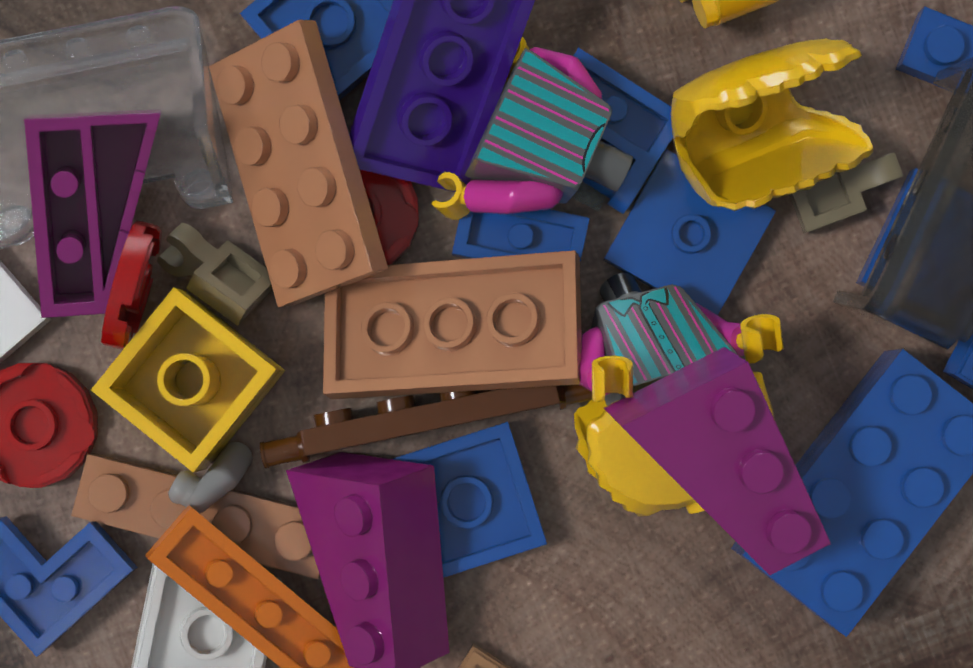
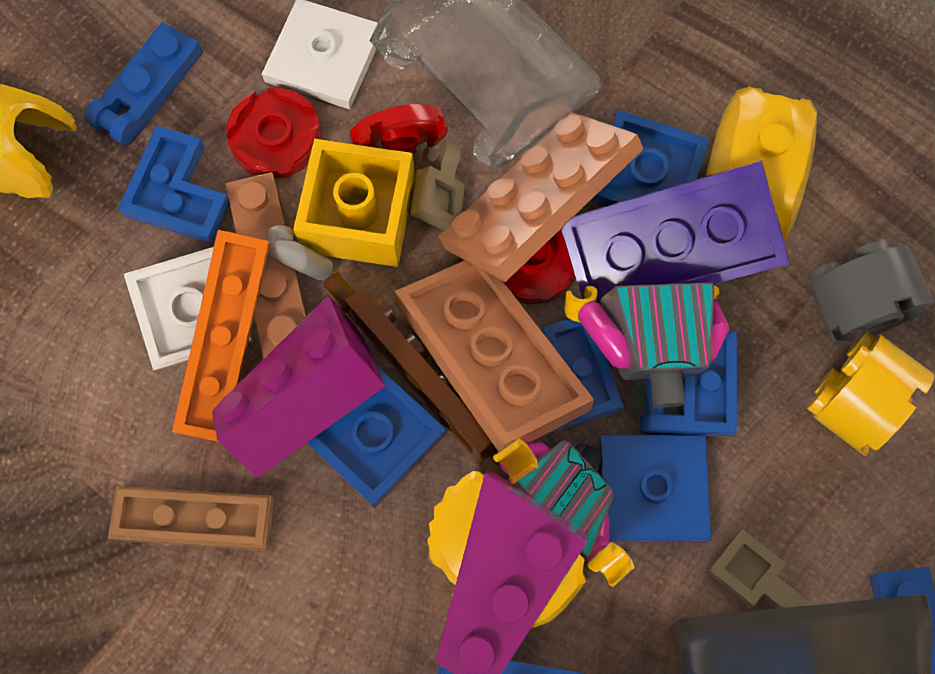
camera: 65 degrees right, 15 degrees down
(84, 201) = (445, 66): magenta wedge -> none
(750, 139) = (758, 480): yellow animal -> none

